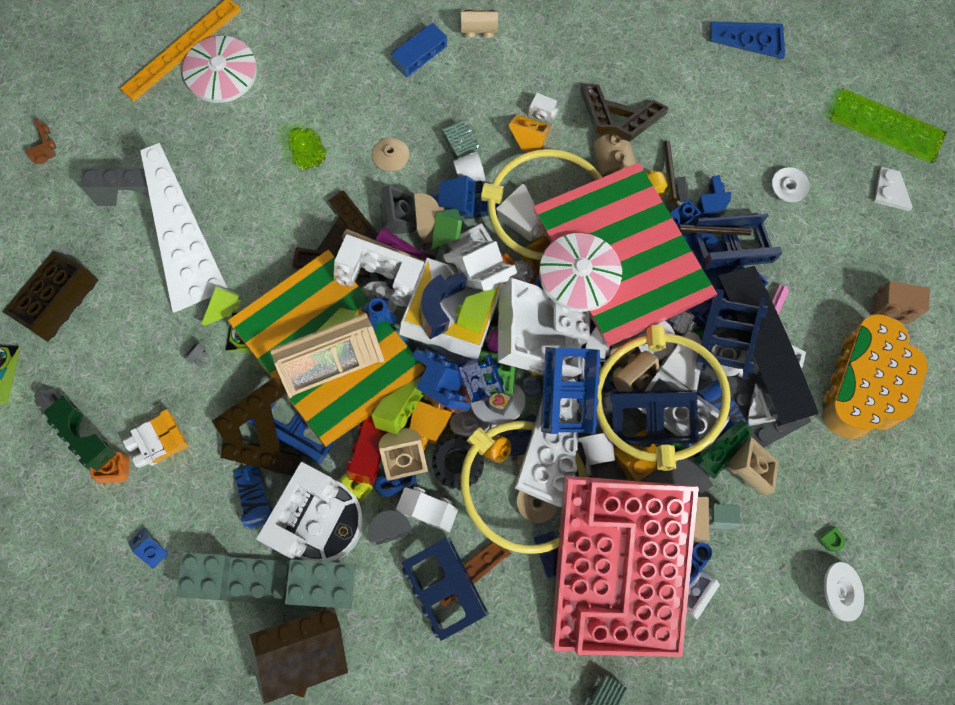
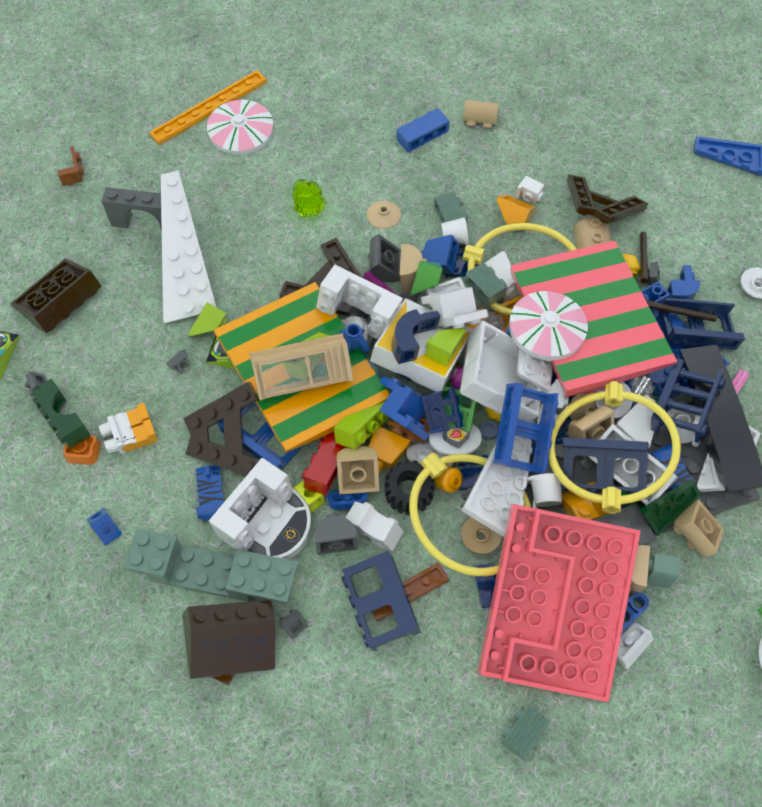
camera: 10 degrees right, 10 degrees down
(360, 624) = (293, 623): none -> dark grey tile
(510, 229) = (486, 284): none -> sand green brick

